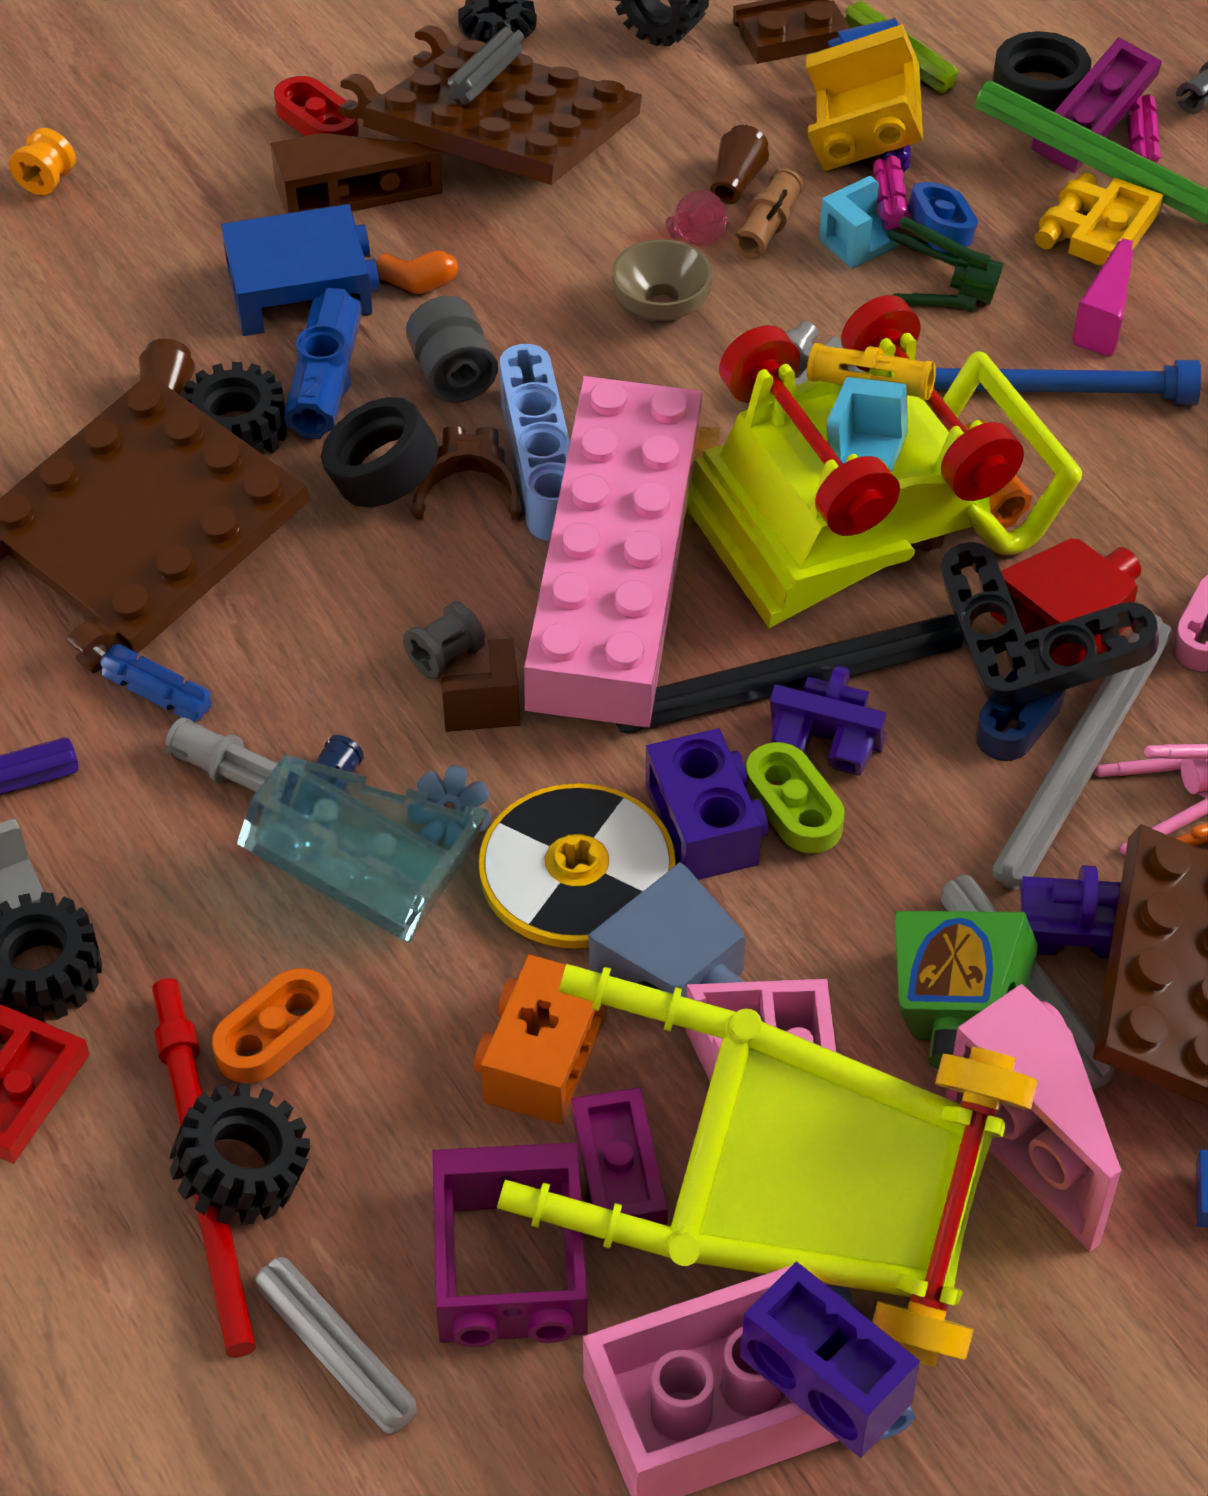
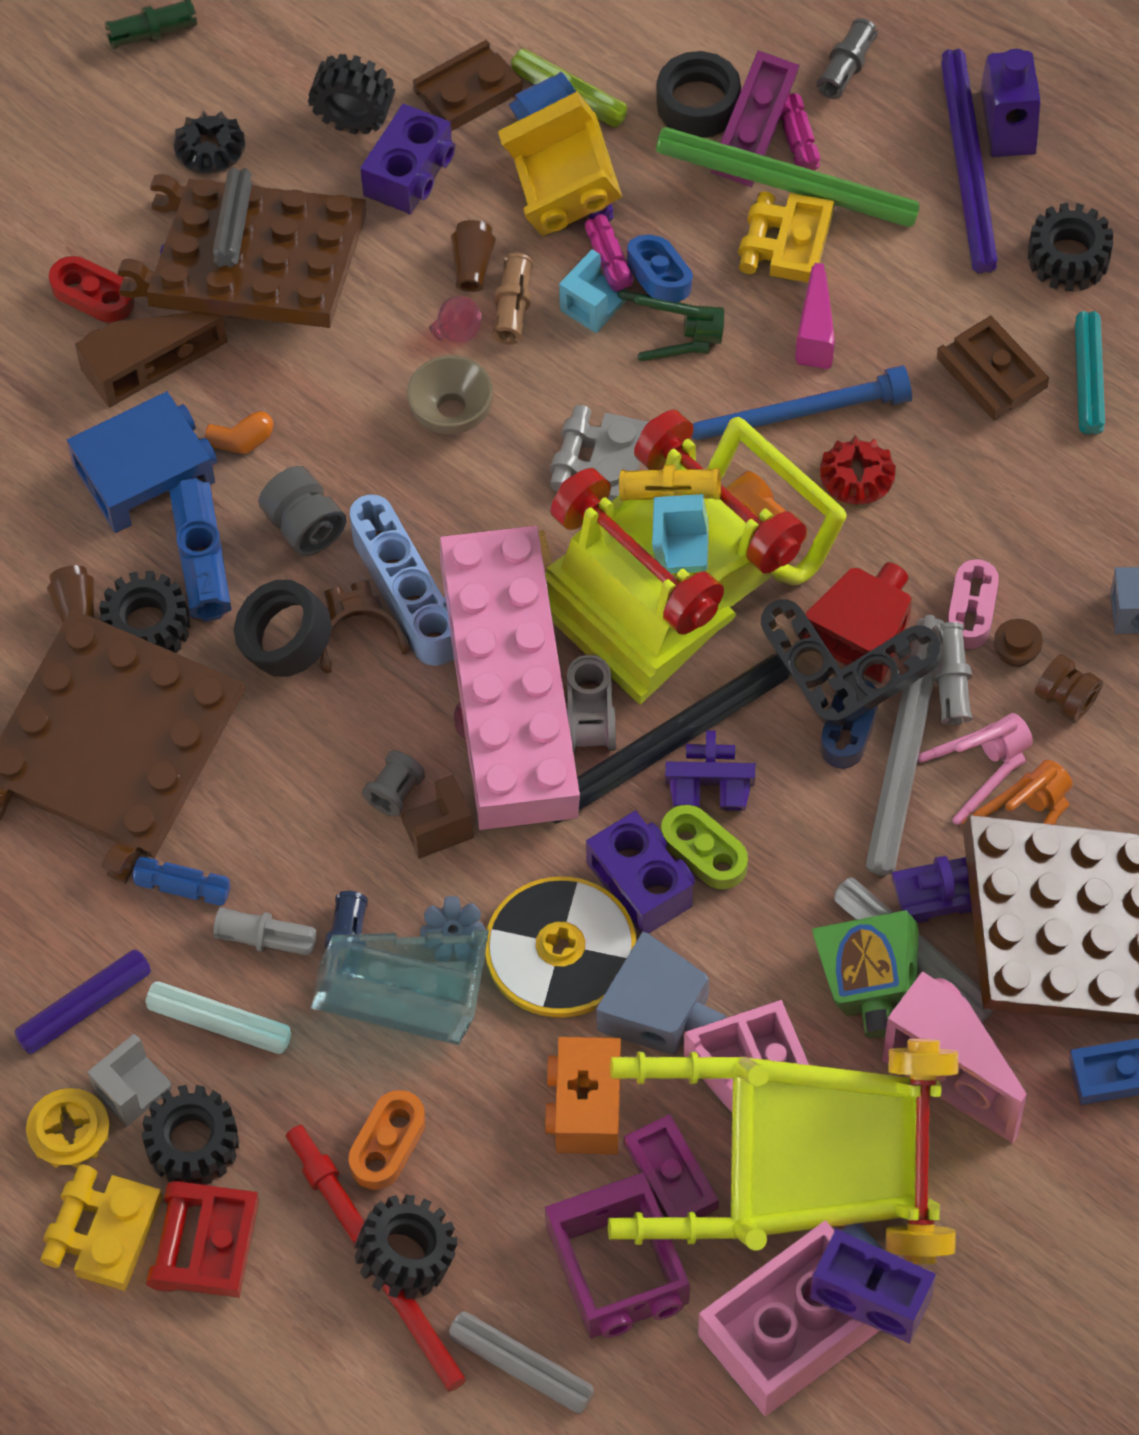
camera: 15 degrees left, 10 degrees up
(133, 838) = (218, 1017): none -> light aqua axle
(699, 67) = (407, 159): none -> dark purple brick
(707, 612) = (590, 711): none -> light grey piece
(1131, 470) = (840, 478): none -> red gear
(1166, 684) = (953, 674): none -> light grey pin

